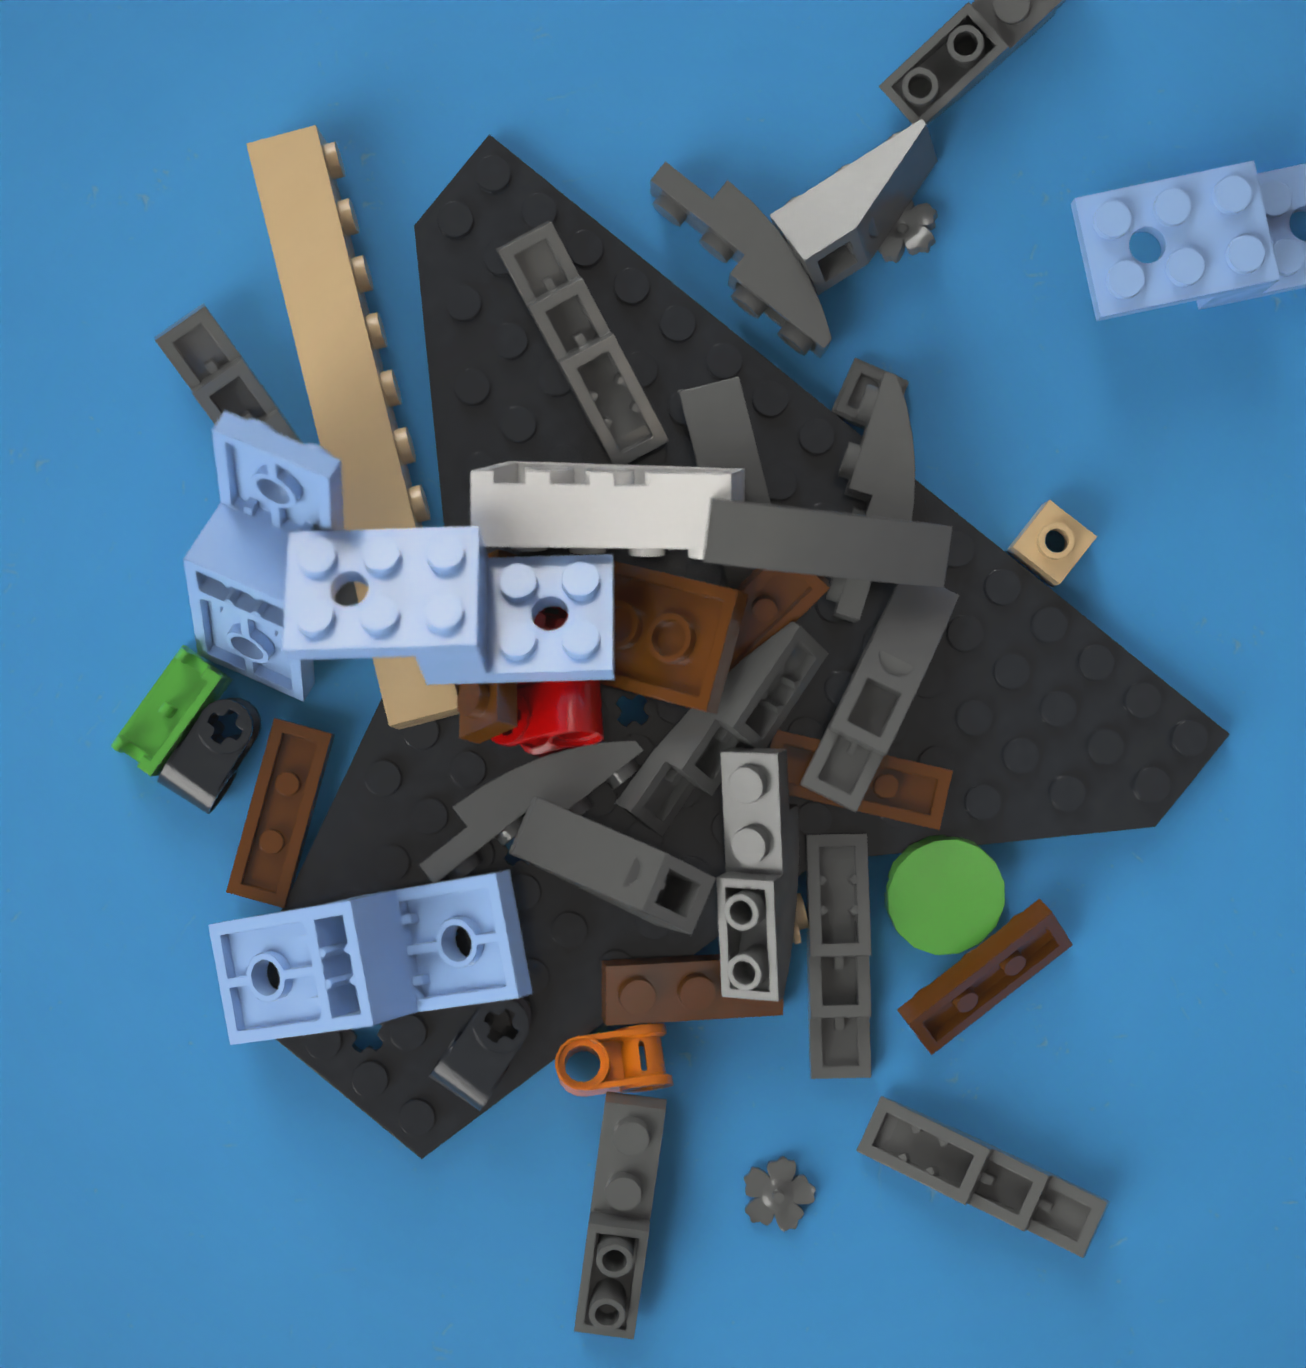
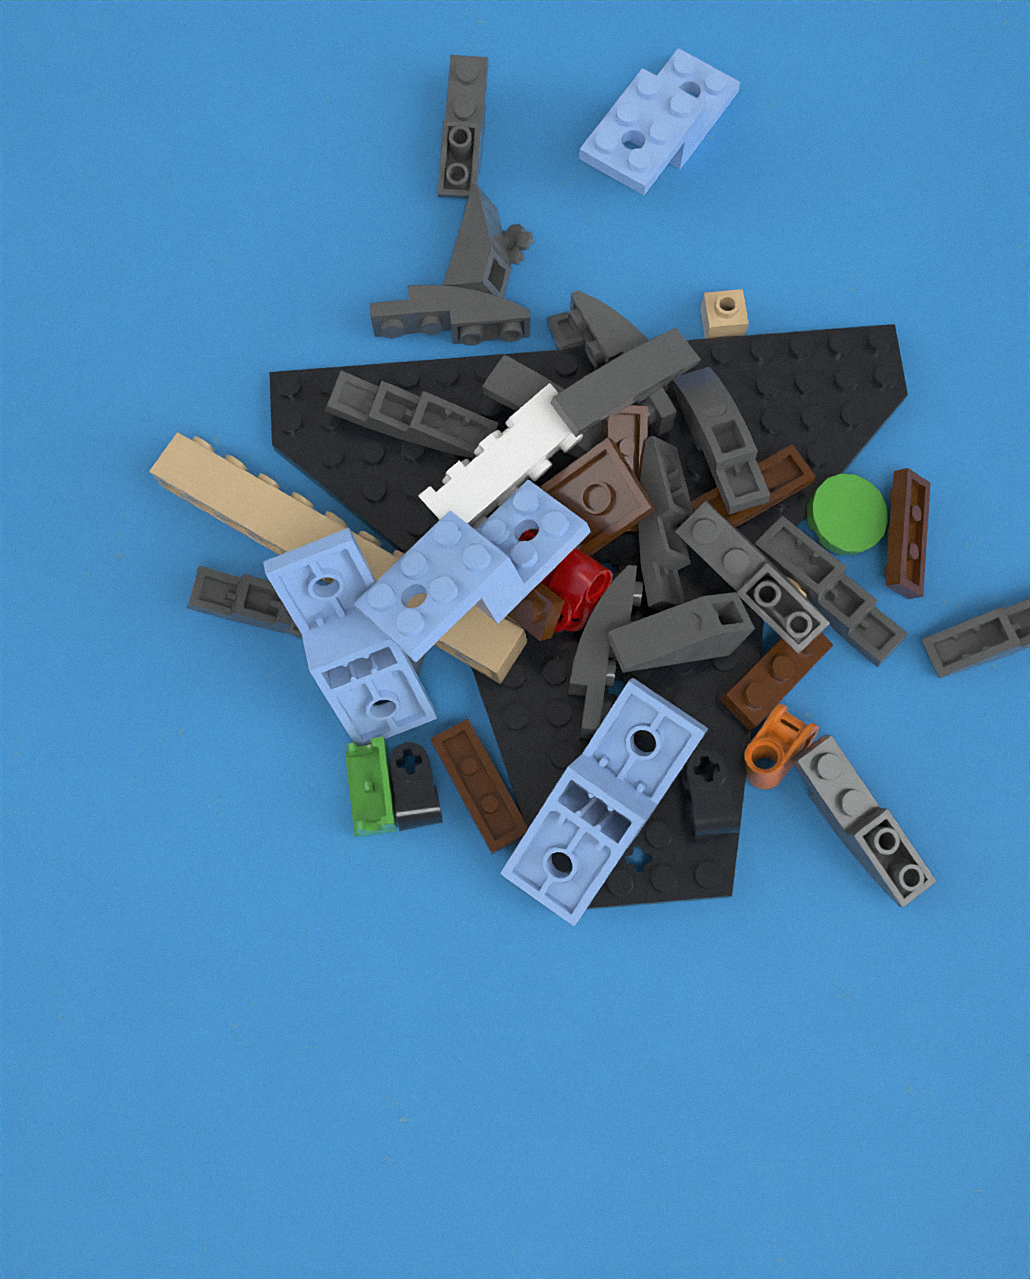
camera: 40 degrees left, 15 degrees down
(777, 1194) = (924, 739): dark grey plant -> none

